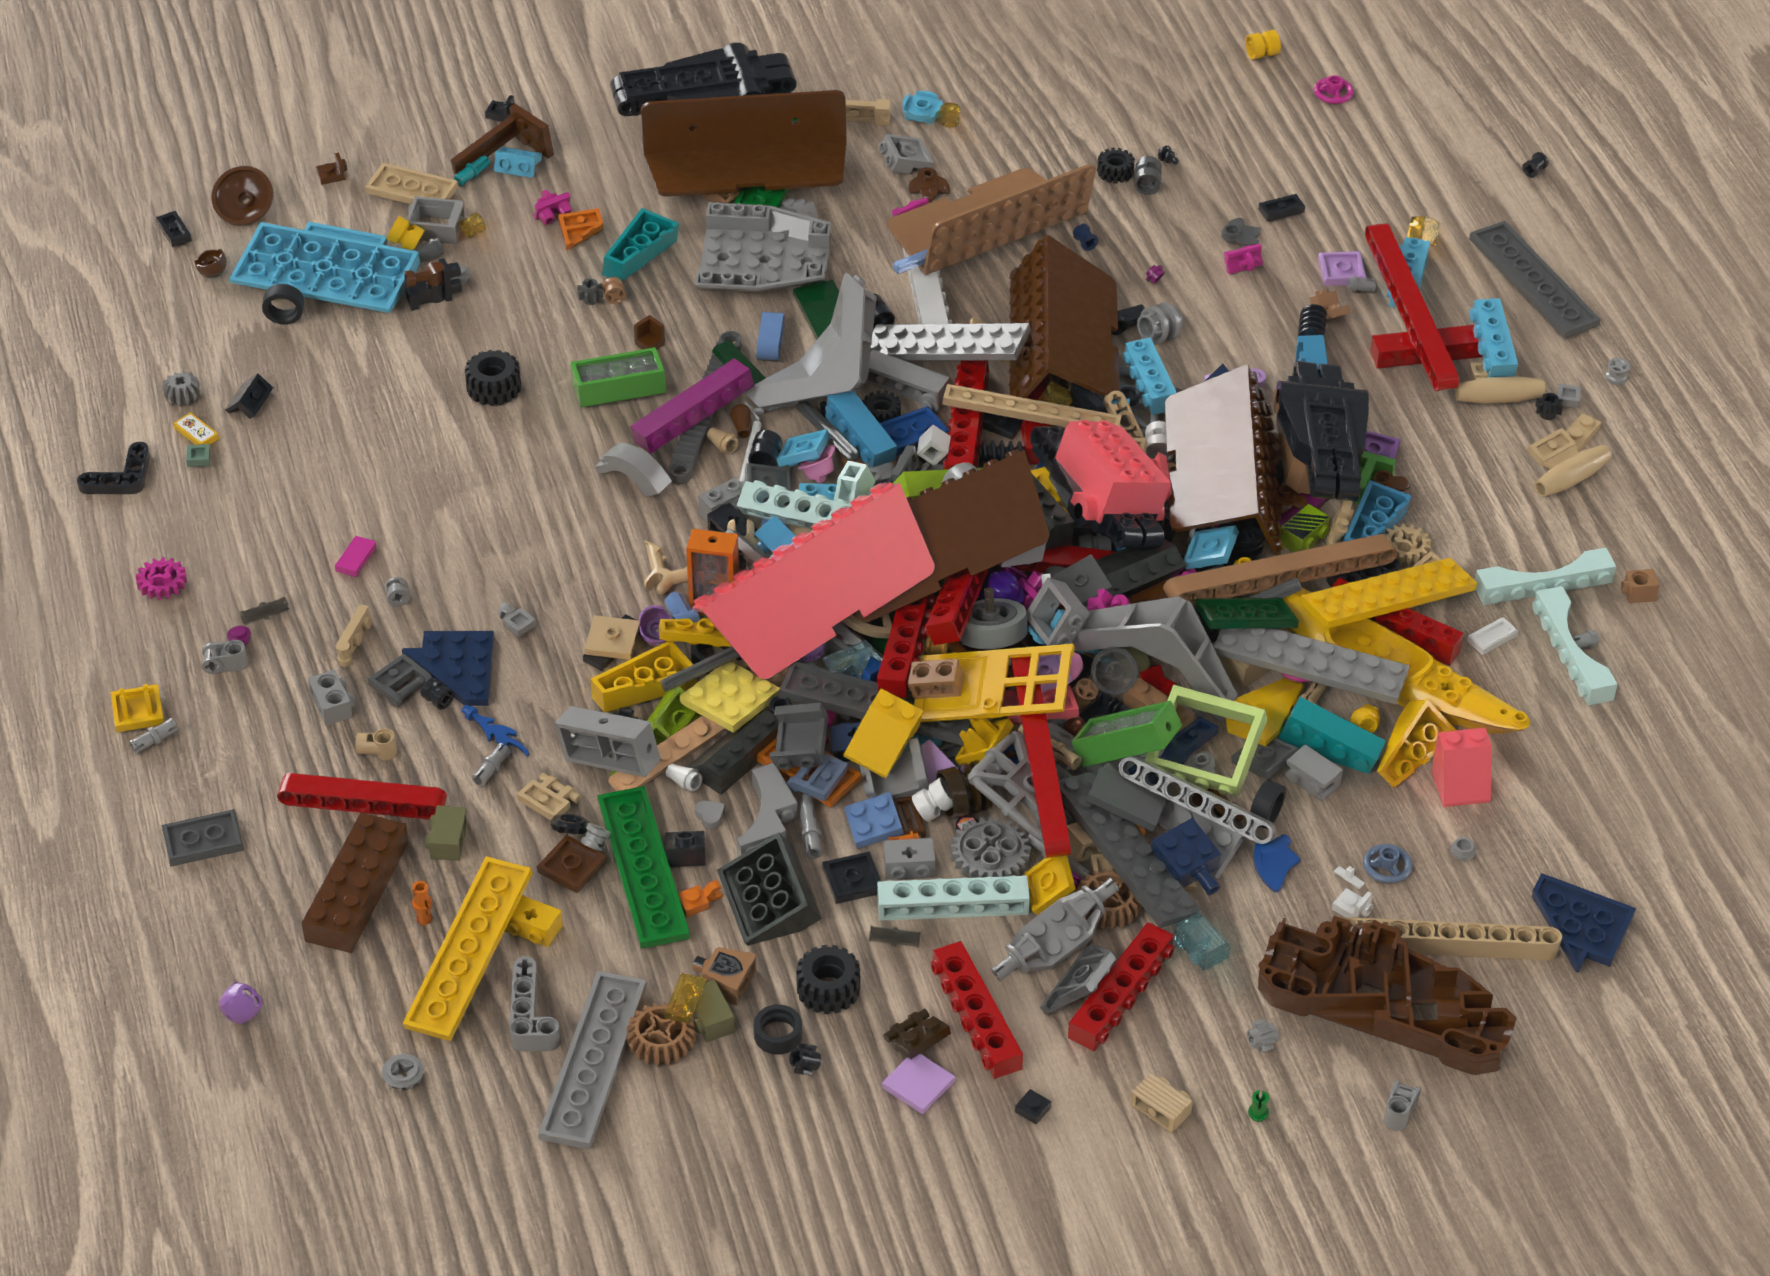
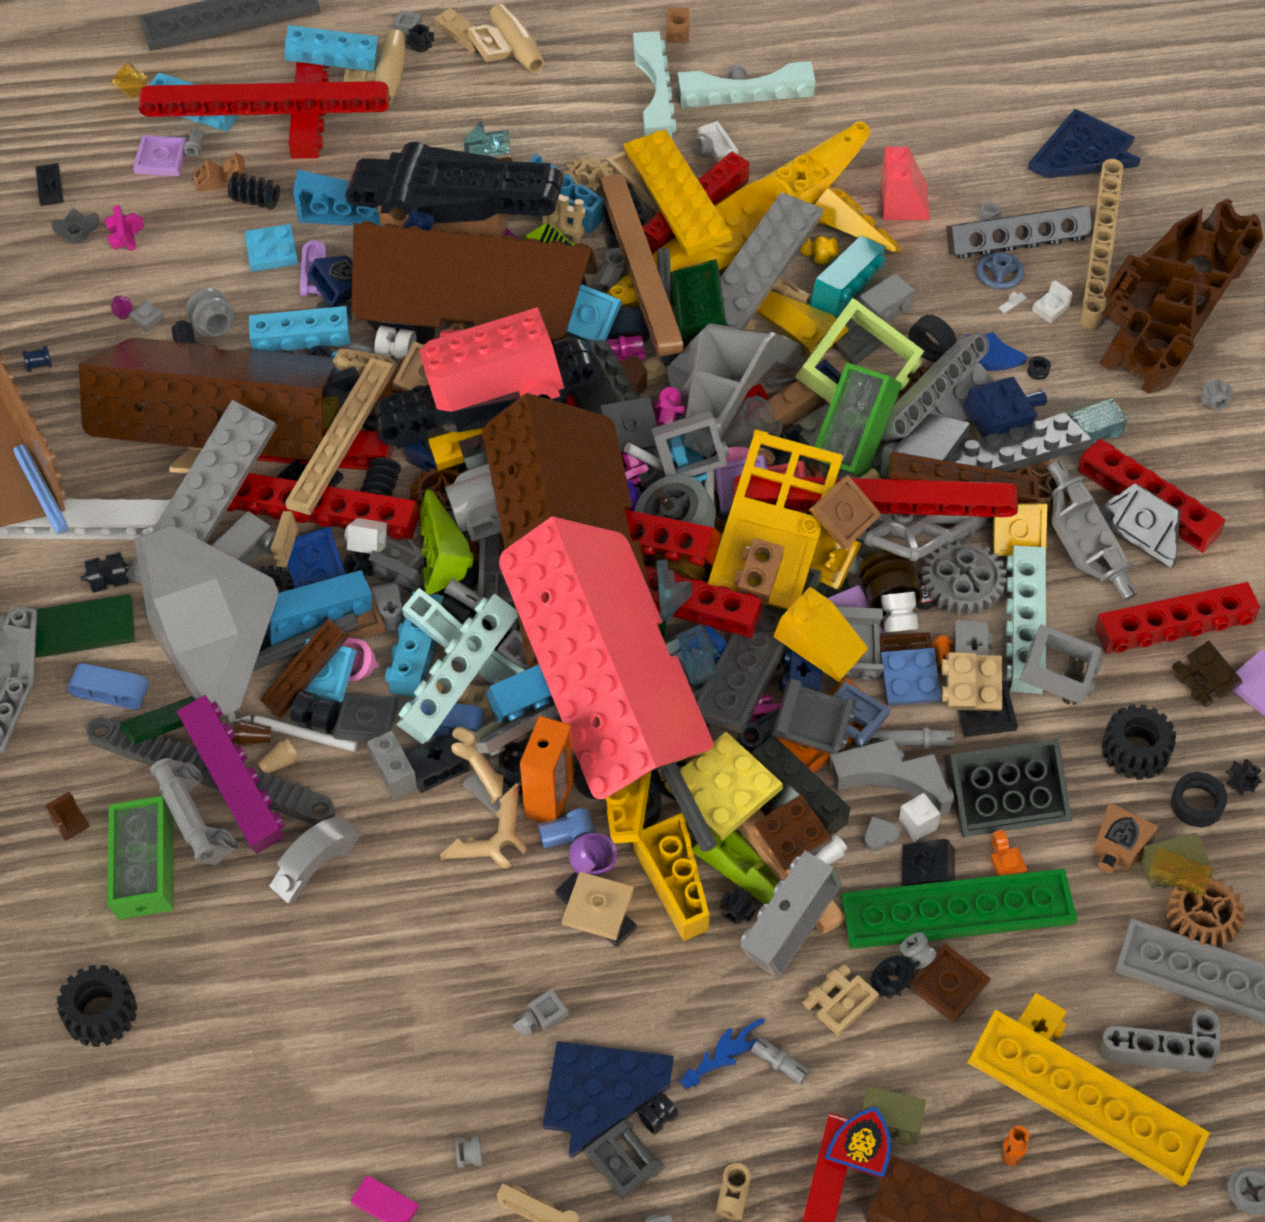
camera: 80 degrees left, 10 degrees up
(414, 806) = (862, 1143): none -> shield
(628, 401) = (176, 782): none -> light grey piece
(690, 741) = (792, 831): none -> reddish brown plate
(725, 831) = (919, 817): none -> white brick
(805, 433) = (304, 667): none -> reddish brown tile
(865, 851) = (972, 682): none -> tan plate
(892, 615) = (671, 593): none -> clear light blue slope
(892, 886) = (1054, 682): none -> light grey window
(923, 397) = (284, 538): none -> tan tile
(1005, 721) = (845, 512): none -> medium nougat plate
(1077, 815) = (914, 467): none -> reddish brown plate
(1153, 292) = (146, 316): none -> light grey plate
(1256, 351) = (271, 247): none -> medium azure plate
(1265, 892) = (1041, 373): none -> black bush
(1274, 415) = (420, 220): none -> dark blue plate
(1427, 467) = (487, 143): none -> clear light blue slope
(1436, 864) = (1077, 217): none -> brick
(1478, 621) = (703, 145): none -> light grey plate

